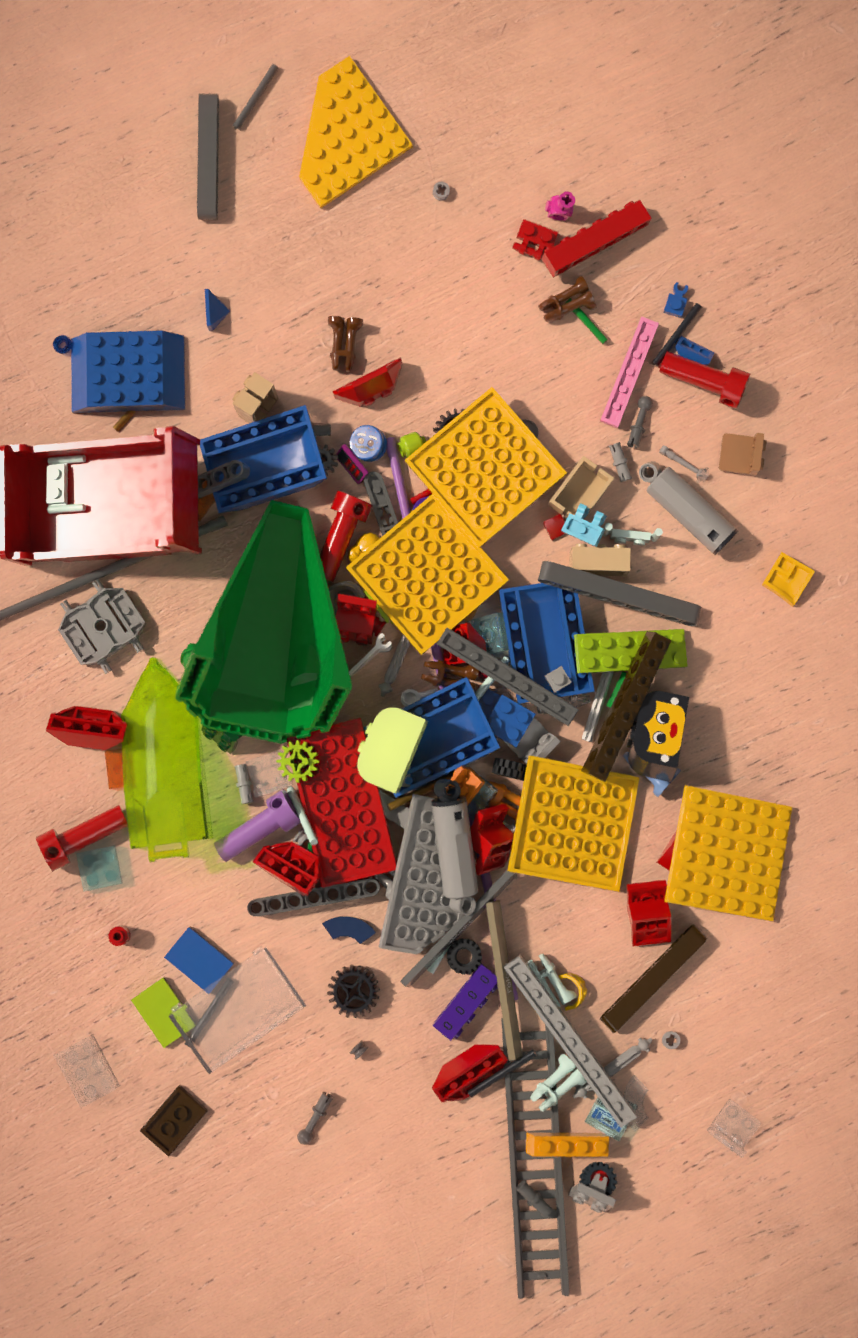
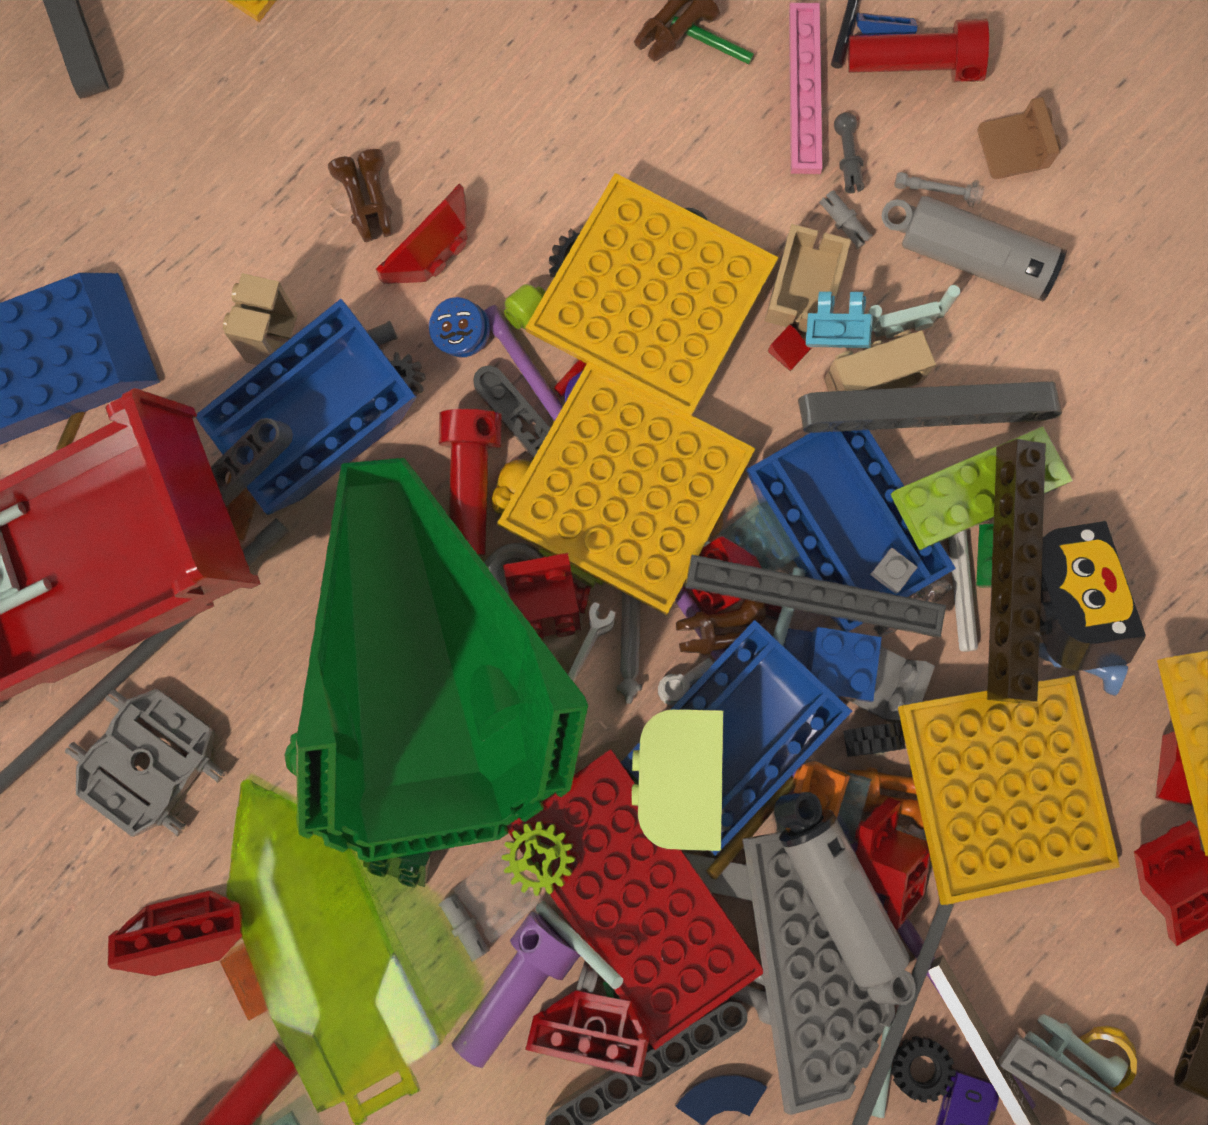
camera: 25 degrees left, 5 degrees down
(215, 310) = (152, 218): blue slope -> none
(351, 464) = (446, 368): slope -> none
(788, 578) = (1163, 295): yellow plate -> none

